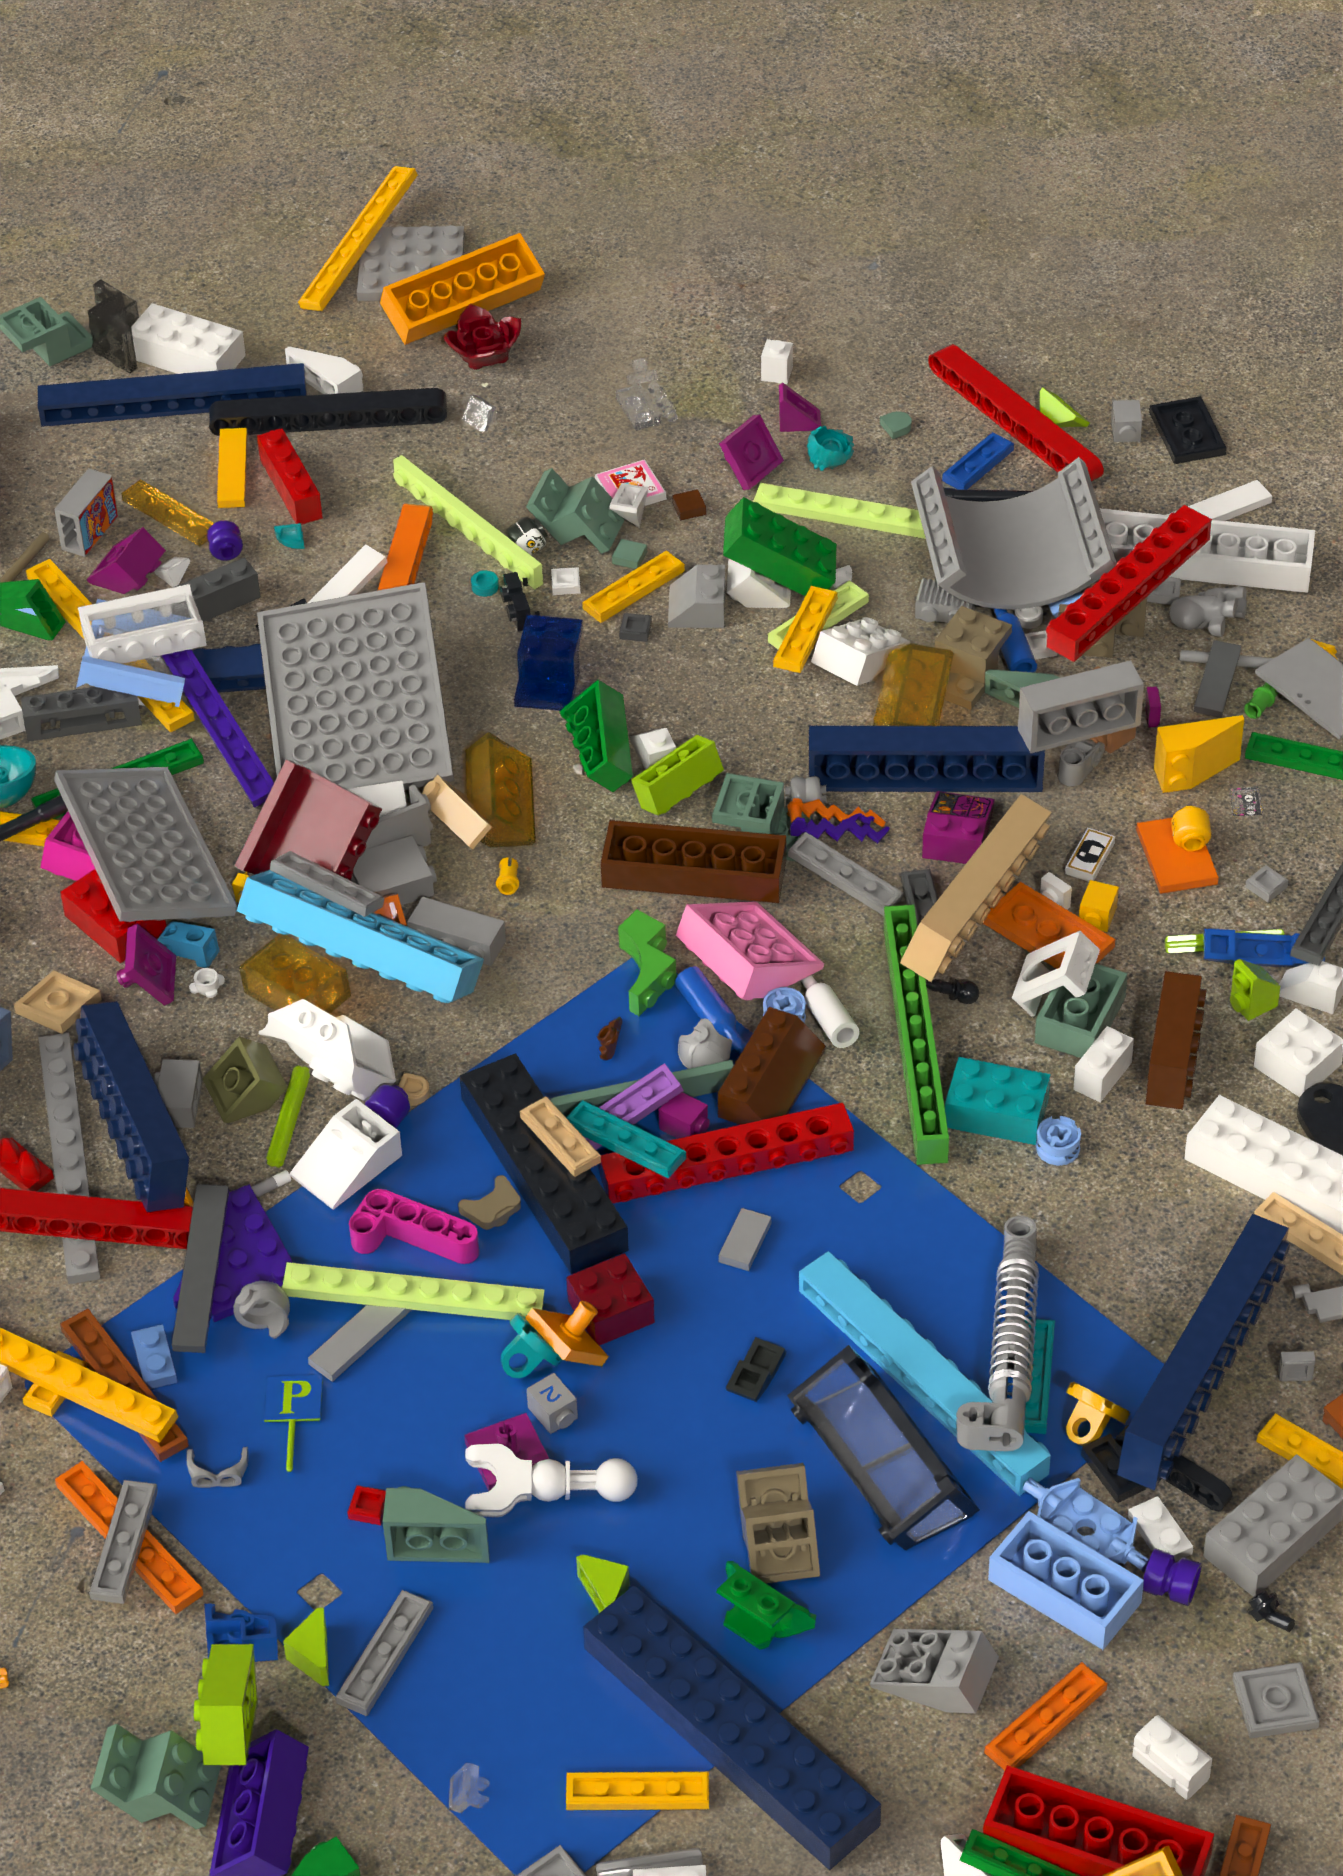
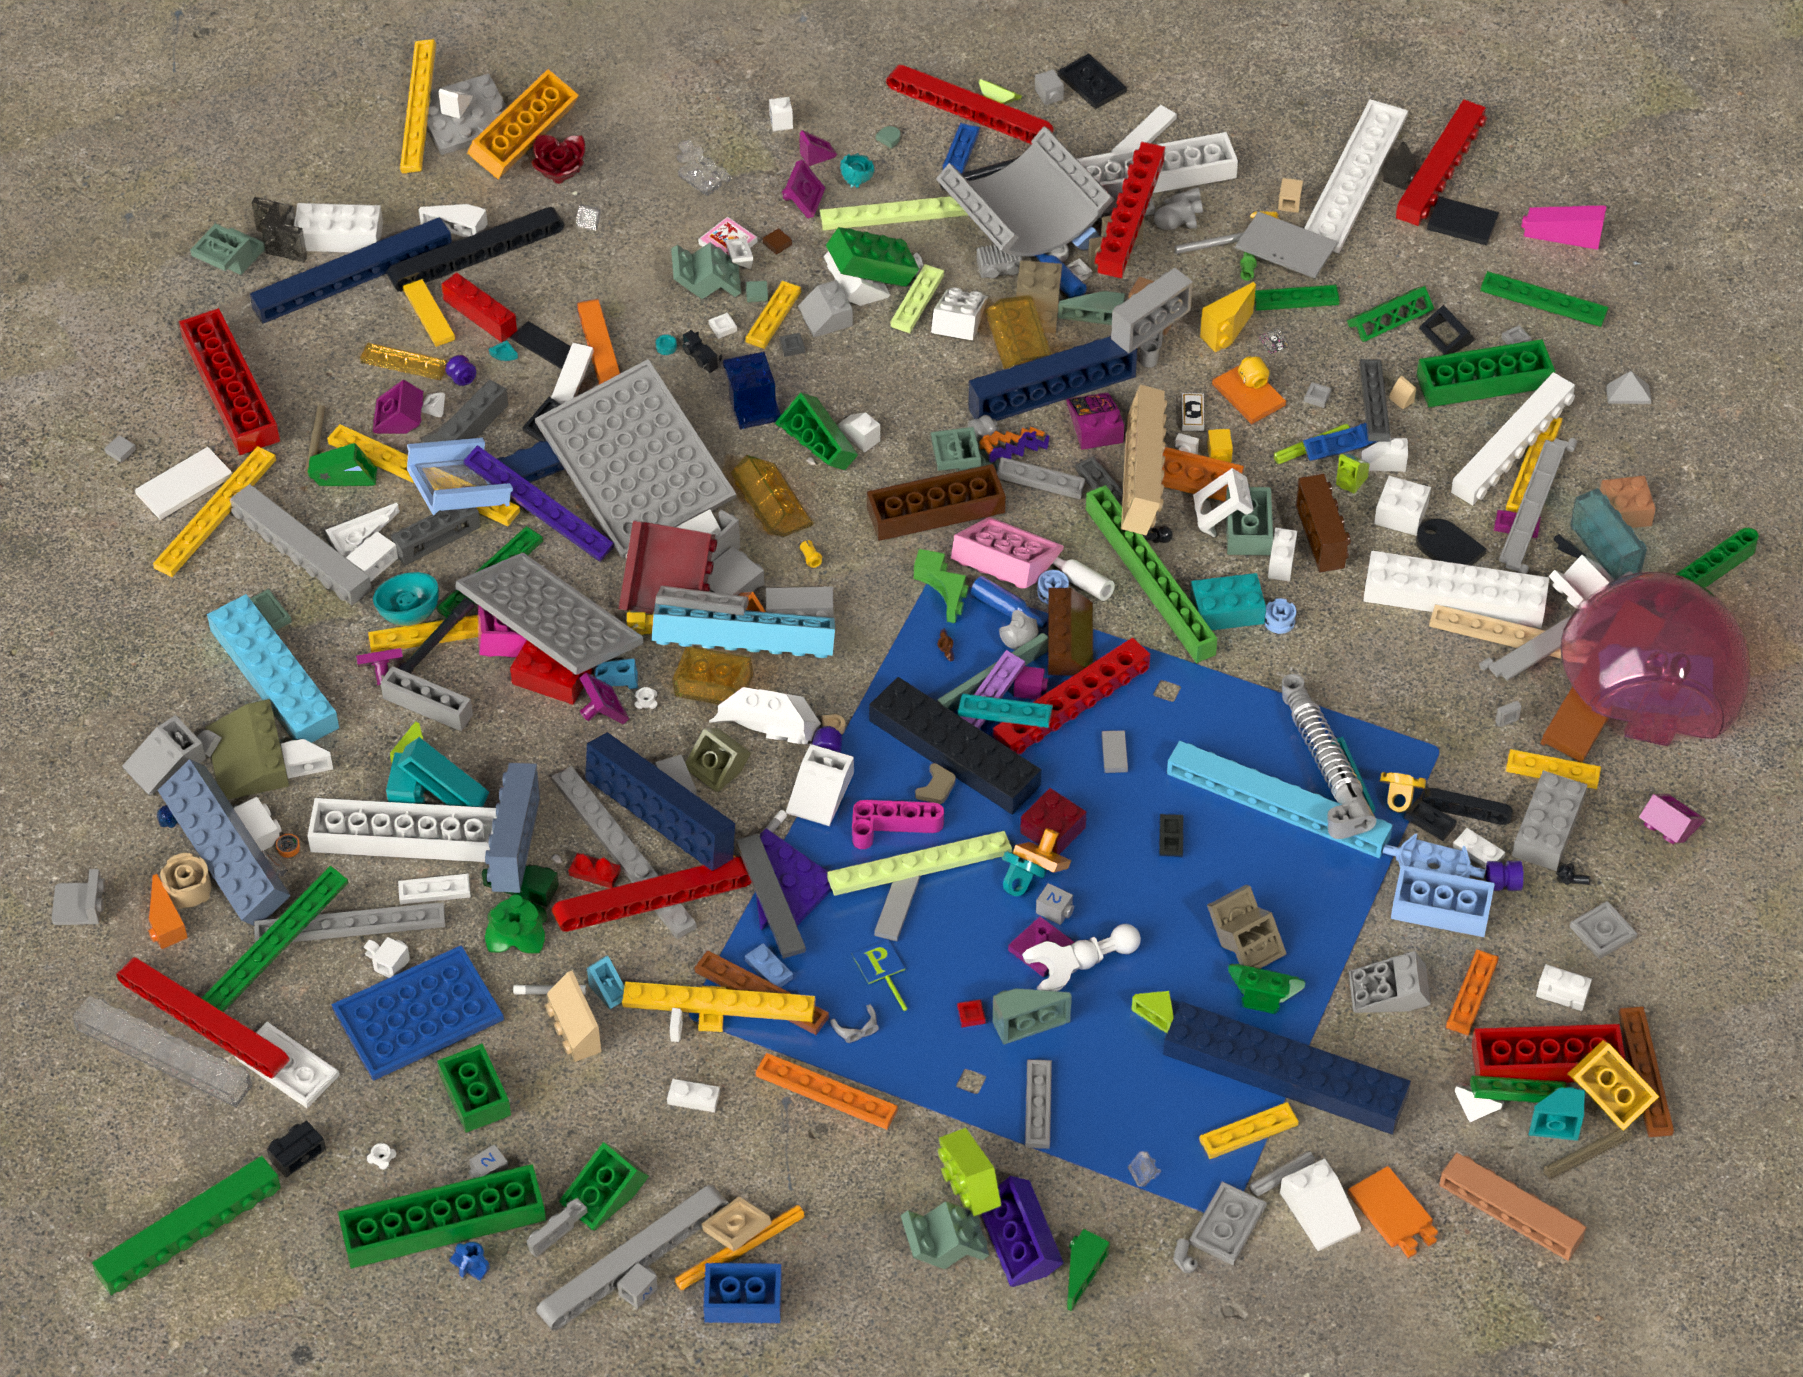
camera: 25 degrees left, 5 degrees up
(56, 1001) = (551, 746): tan plate -> none
(86, 512) = (349, 380): light grey brick -> none
(123, 1542) = (829, 1094): light grey tile -> none
(142, 625) = (455, 454): white window -> none
(242, 1629) = (935, 1125): blue slope -> none
(263, 1306) = (828, 906): light grey cap -> none
(288, 1116) = (759, 773): lime axle -> none
(308, 1647) = (993, 1119): lime slope -> none
(338, 536) = (542, 344): none -> black piece
(397, 243) = (454, 102): none -> white slope
(456, 811) = (757, 520): tan slope -> none
(467, 521) = (628, 302): yellowish green plate -> none
(528, 535) = (679, 301): head -> none
(560, 1136) = (965, 723): tan tile -> none
(677, 775) = (889, 444): lime brick -> none
(805, 629) = (916, 310): yellow tile -> none
(882, 1450) = (1282, 859): clear windscreen -> none
(1203, 1353) = (1455, 724): dark blue brick -> none
(1217, 678) = (1211, 259): dark grey tile -> none

